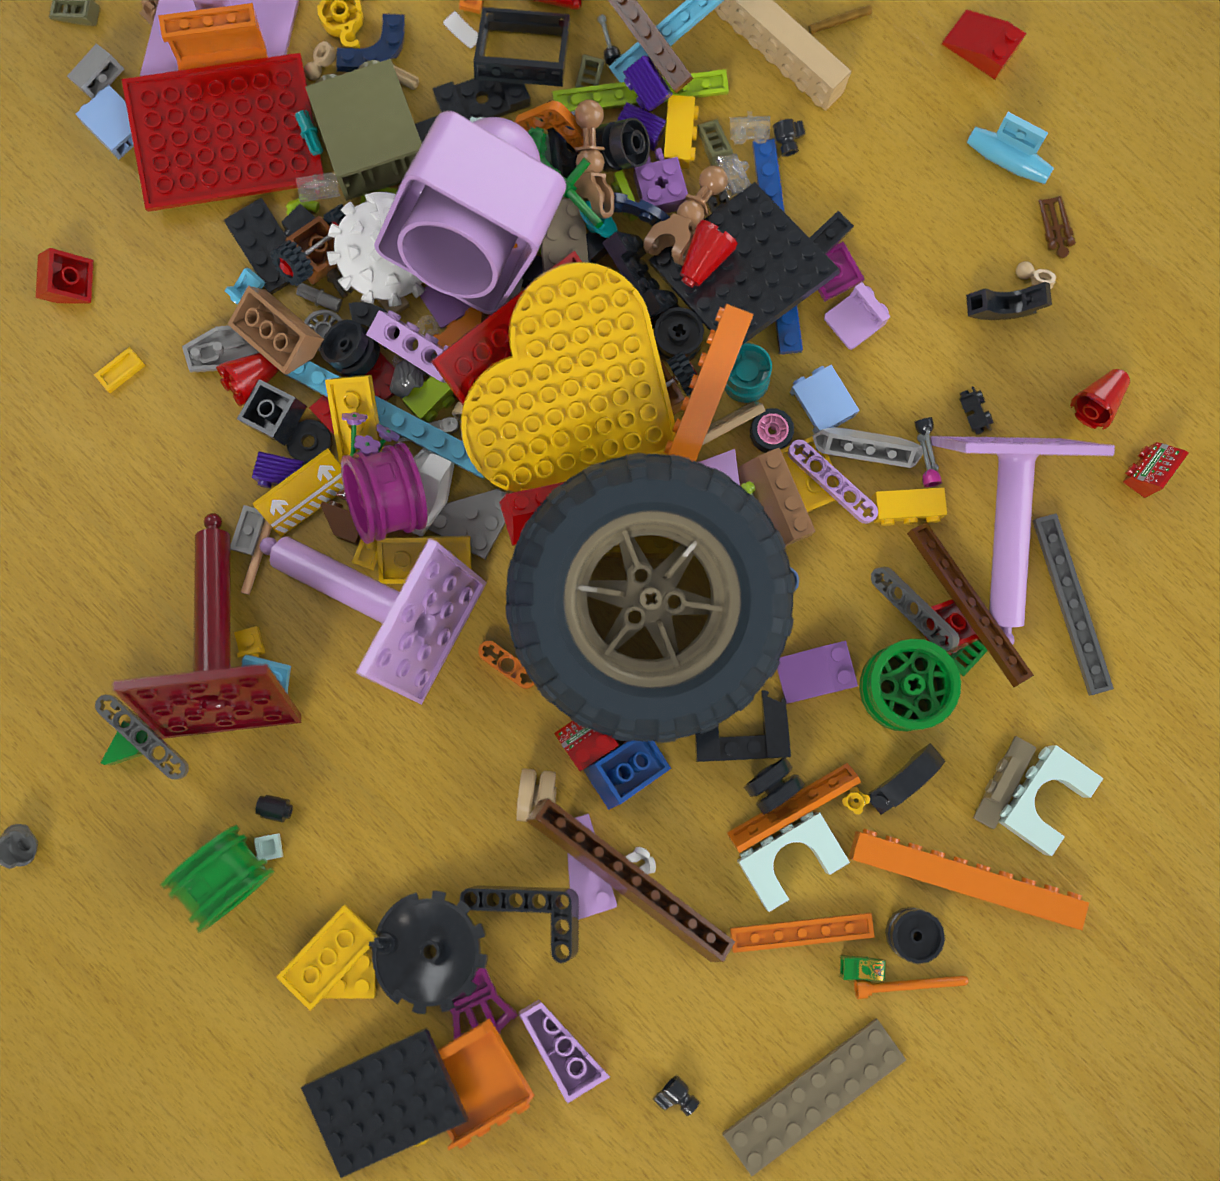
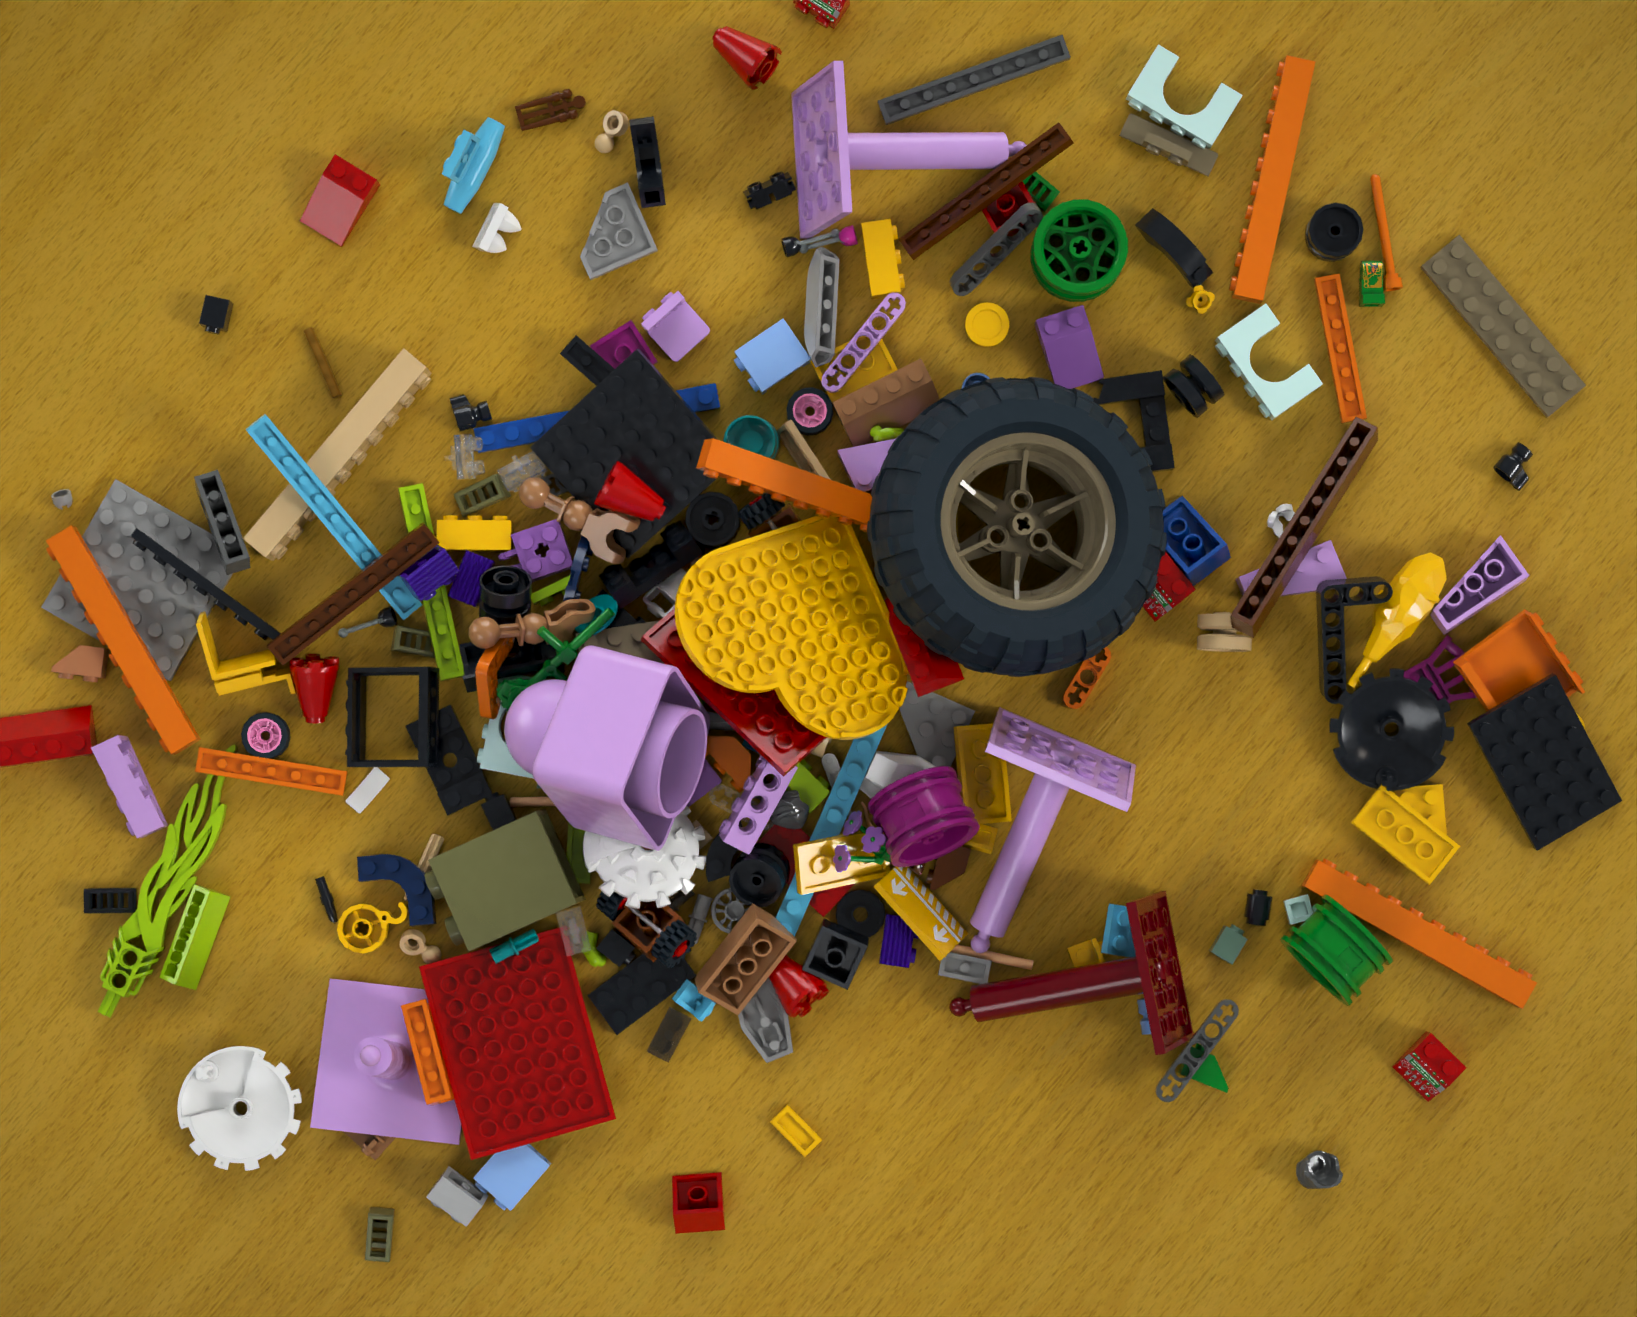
camera: 85 degrees left, 5 degrees up
(104, 963) = (1429, 1066): none -> red slope
(218, 264) = (669, 1034): none -> clear smoke plate
(230, 964) = (1420, 934): none -> orange brick
(242, 777) = (1228, 943): none -> sand green brick
(554, 983) = (1413, 597): none -> yellow piece
(794, 808) = (1205, 350): orange plate -> none
(842, 598) = (987, 324): none -> yellow piece
(942, 273) = (617, 234): none -> light grey plate
(960, 172) = (497, 219): none -> white tile

